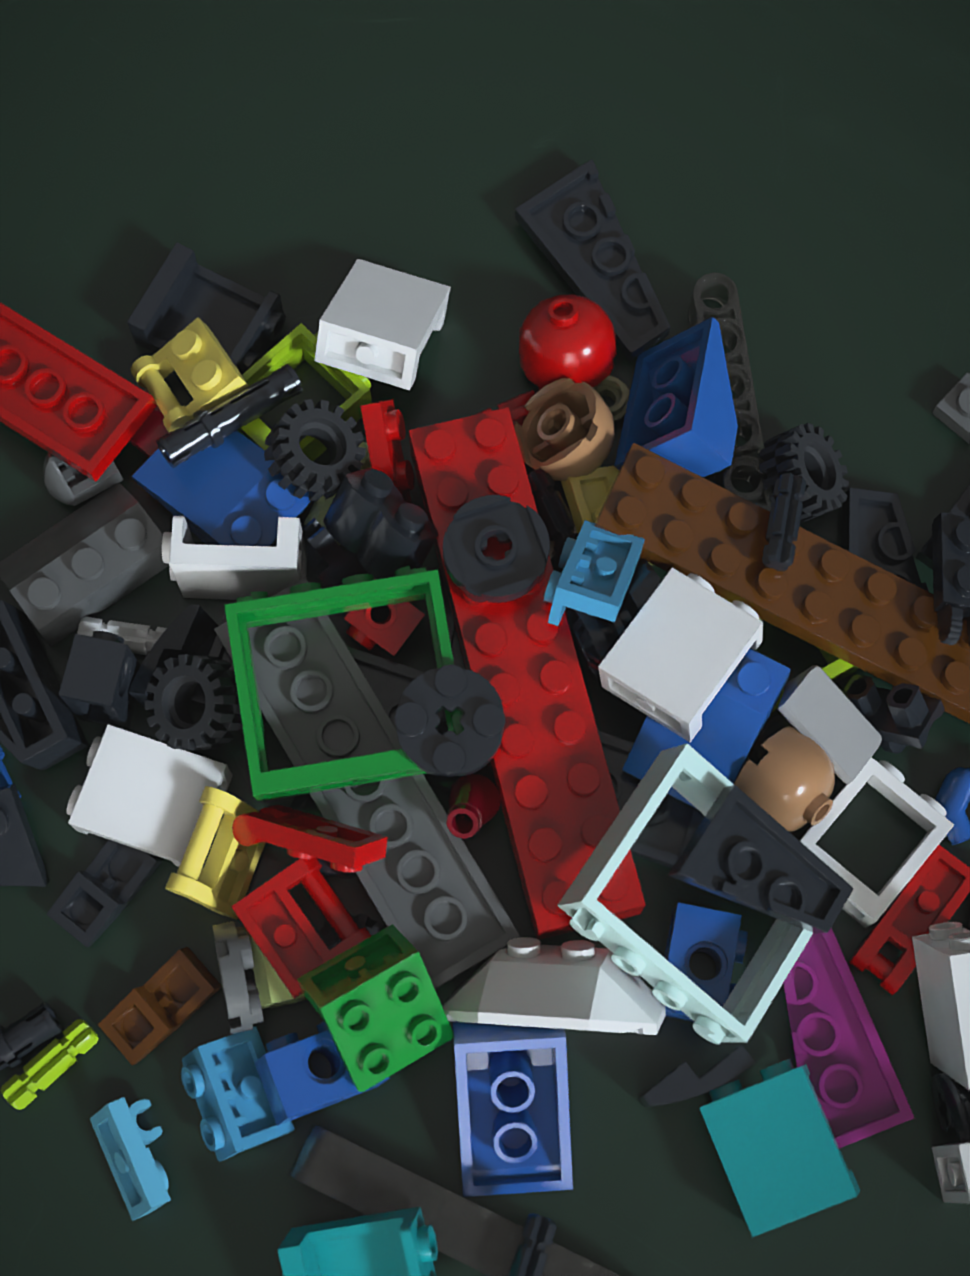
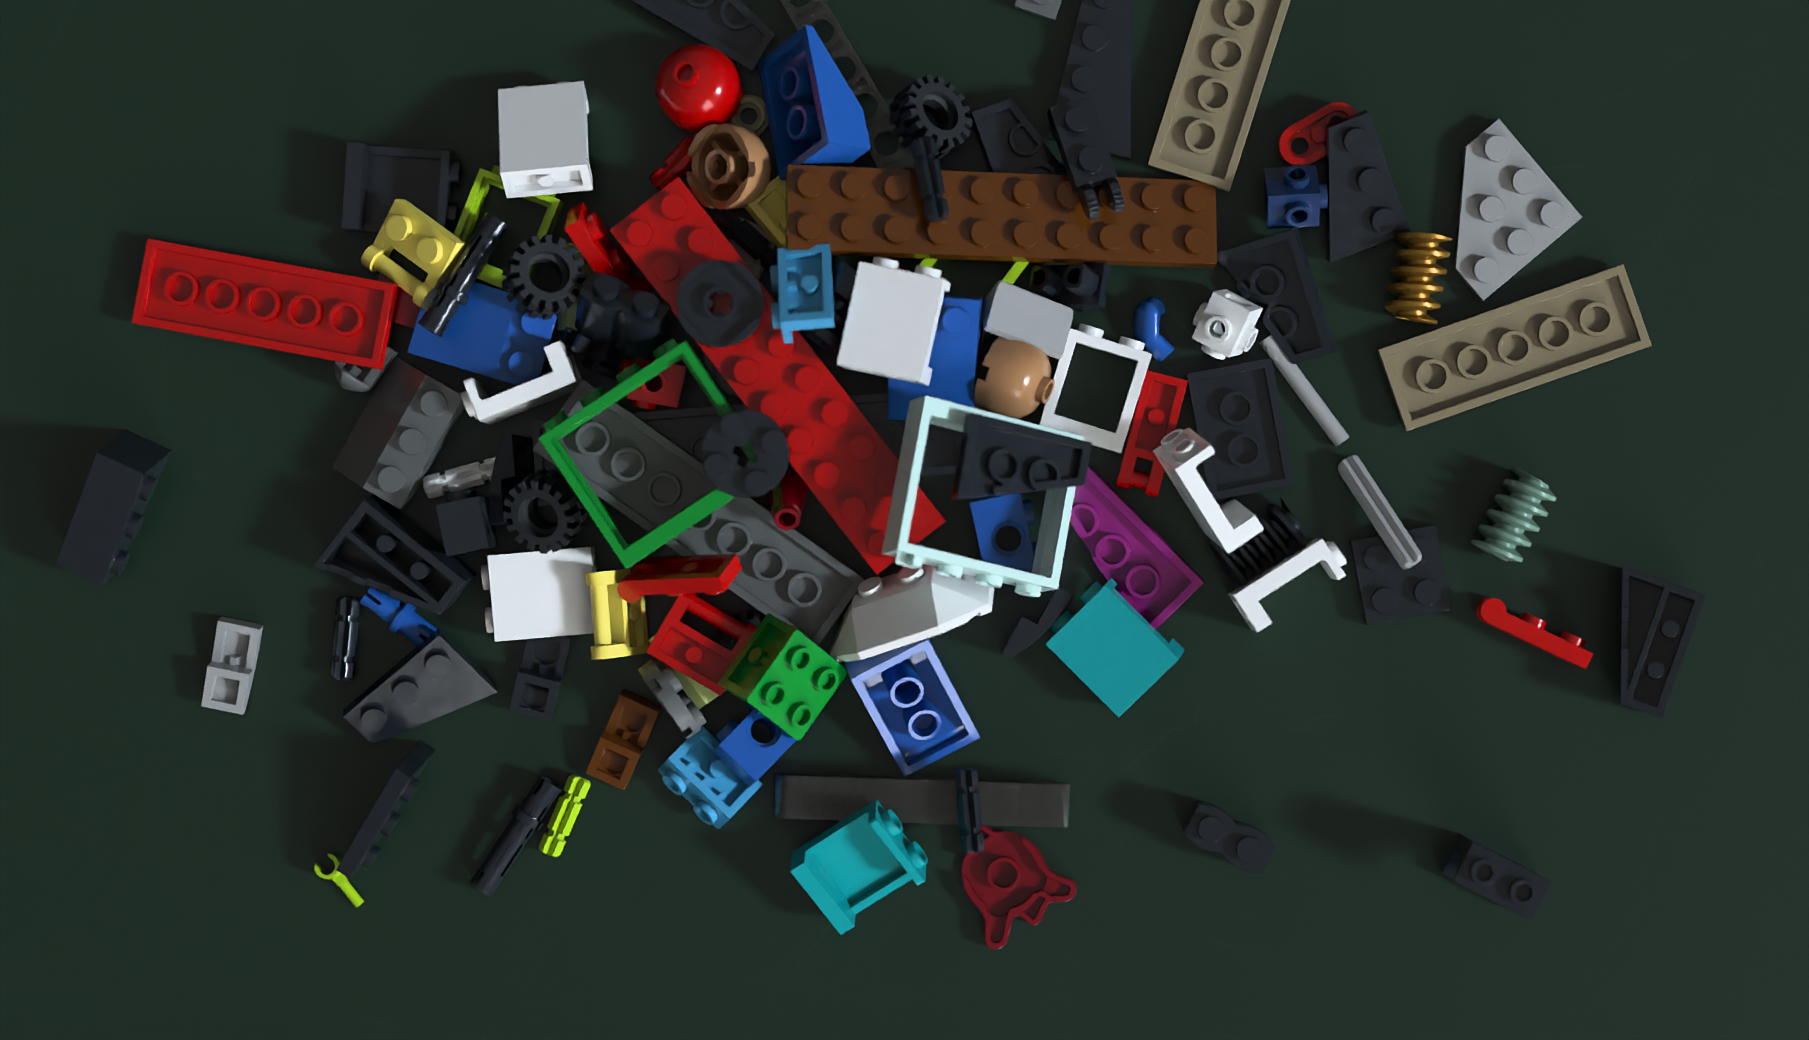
camera: 20 degrees left, 15 degrees up
(137, 1174) = (665, 863): medium azure plate -> none

